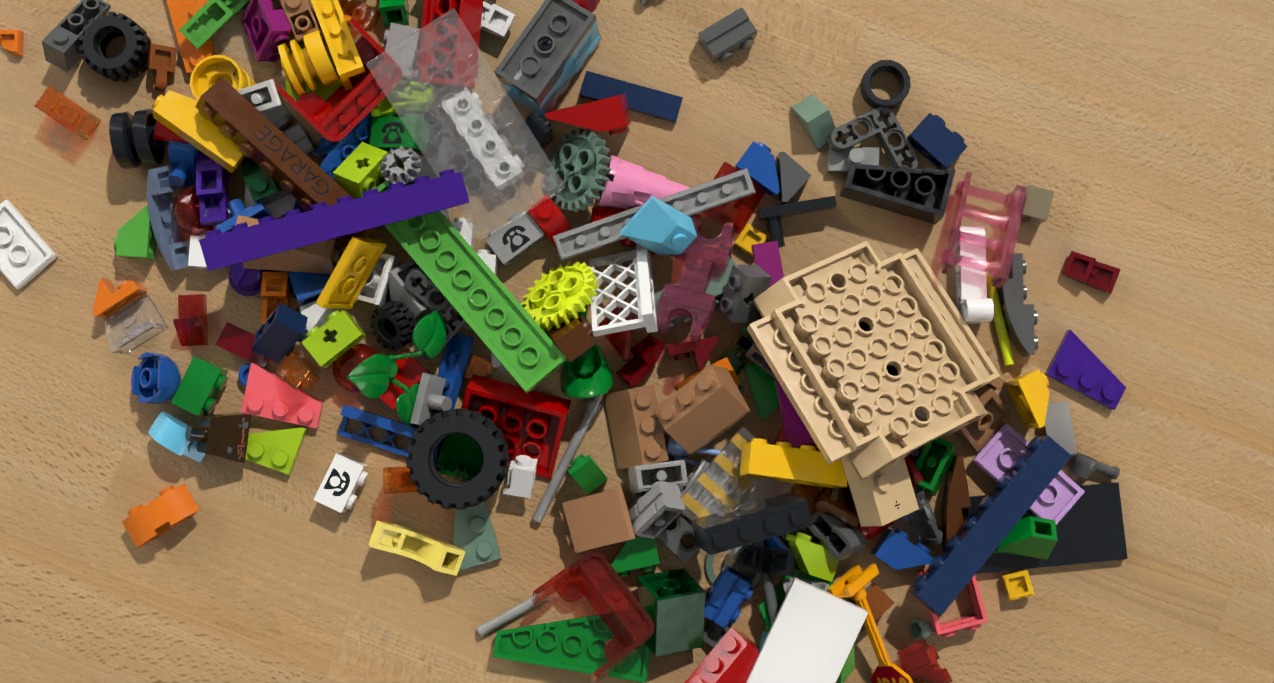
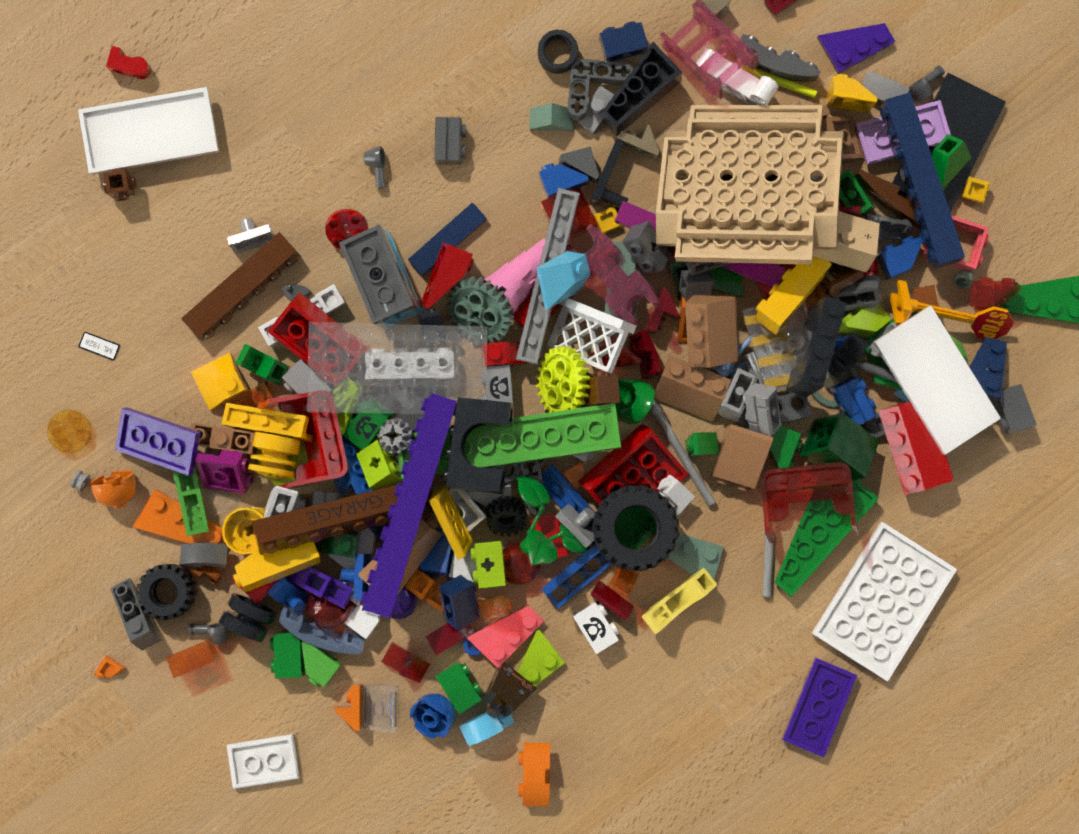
camera: 55 degrees left, 0 degrees up
(103, 120) = (216, 631): none -> dark grey bar
(125, 201) = (288, 655): none -> green brick
(171, 57) = (200, 554): none -> dark grey slope
(374, 482) = (612, 600): none -> dark red slope
(403, 250) = (469, 416): none -> black arch
(740, 366) = (696, 285): none -> dark grey brick
(847, 228) = (645, 146): none -> dark tan slope

